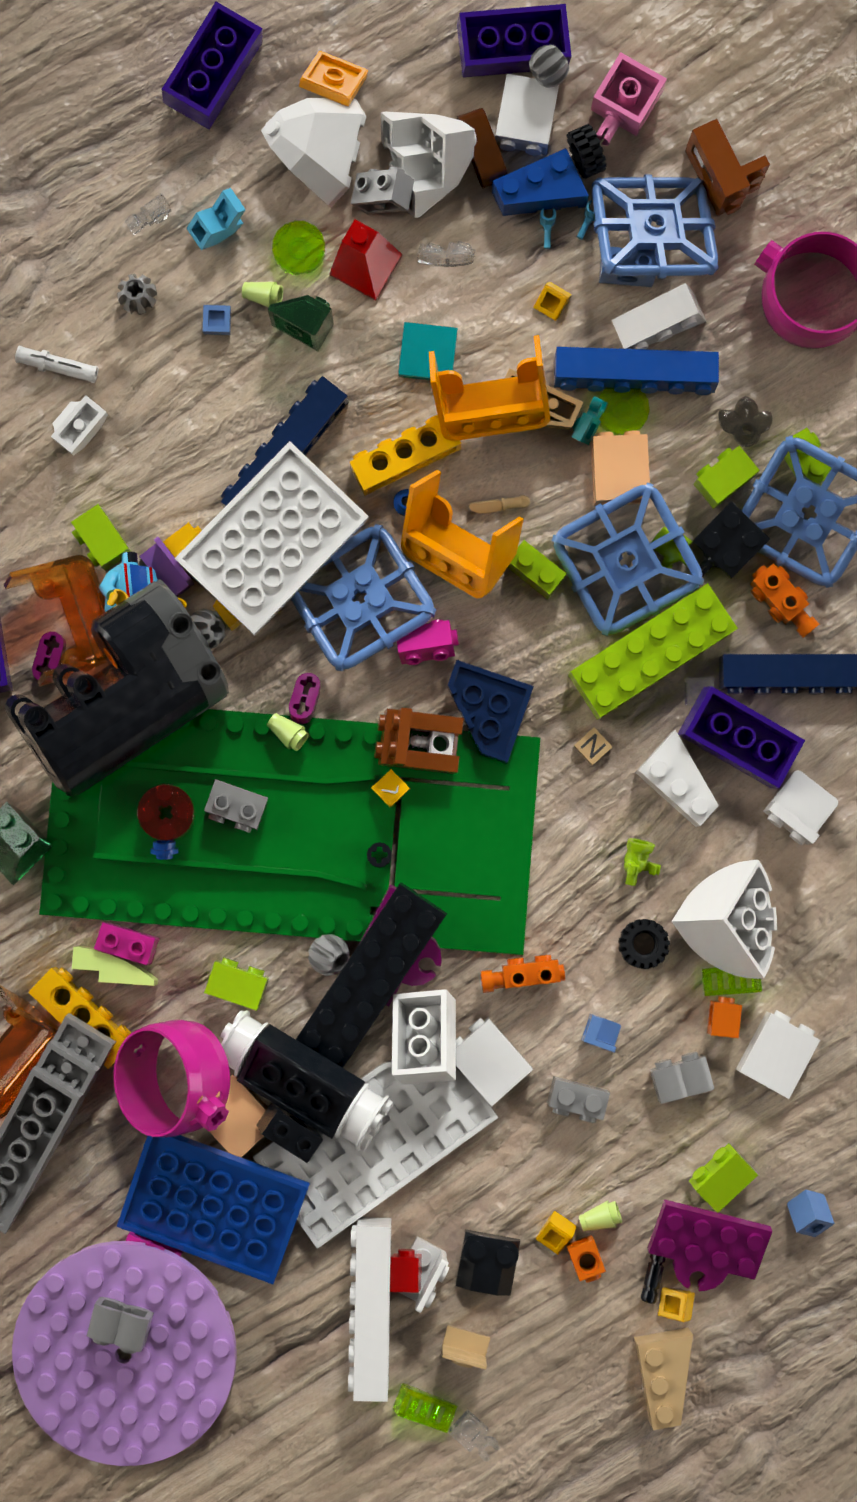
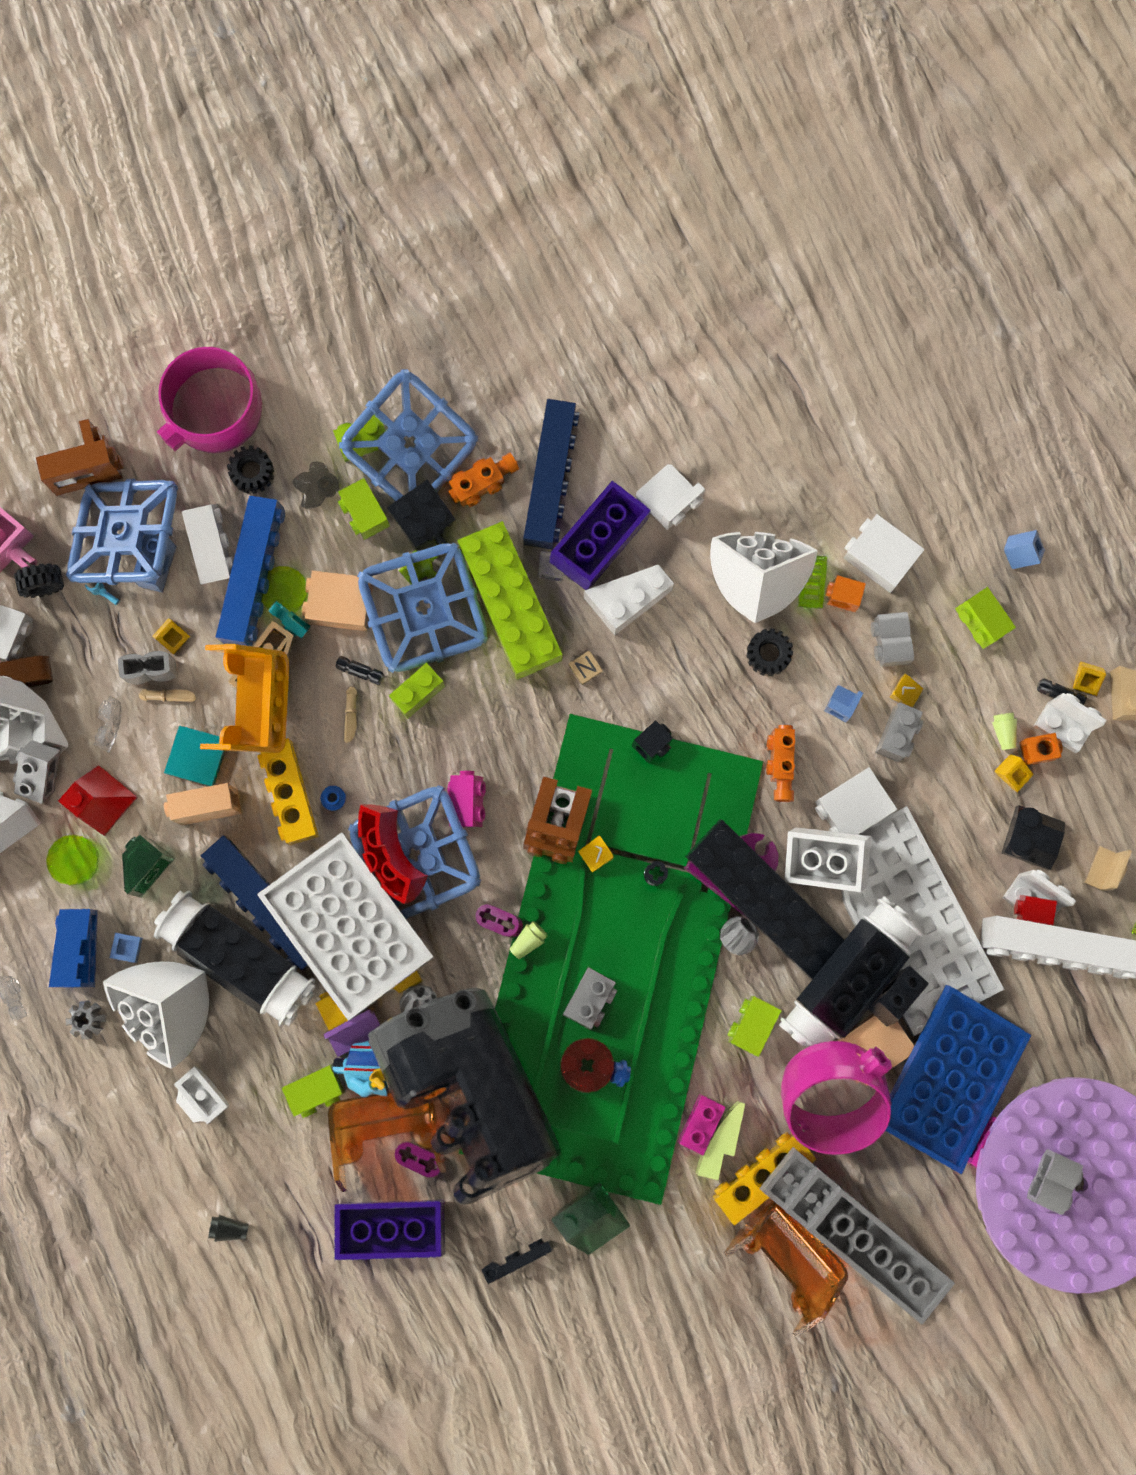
camera: 80 degrees left, 5 degrees down
(46, 361) = (133, 1118): white pin -> none
(161, 367) = (161, 1007): none -> white brick
(205, 268) = (74, 949): none -> blue wedge
(218, 222) = (32, 931): medium azure brick -> none
(221, 430) = (234, 958): none -> black brick
(263, 292) = (109, 899): yellowish green cone -> none
(352, 566) = (384, 853): none -> red brick
(376, 368) = (202, 804): none -> light nougat brick
(448, 549) = (385, 763): light orange windscreen -> none
(488, 313) = (169, 695): none -> tan piece
(490, 707) = (534, 752): dark blue plate -> none
(514, 286) = (142, 669): none -> light grey brick
(523, 832) = (653, 741): none -> black brick
(540, 185) = (62, 627): blue wedge -> none
(547, 223) = (98, 628): medium azure hand -> none
(549, 505) = (359, 670): none -> black axle
(621, 1285) = (1069, 721): none -> white bracket
(625, 1102) = (906, 691): none -> yellow slope
(637, 860) = (694, 645): lime piece -> none
(708, 1244) = (1041, 640): magenta plate -> none
(753, 333) = (250, 455): none -> black tyre

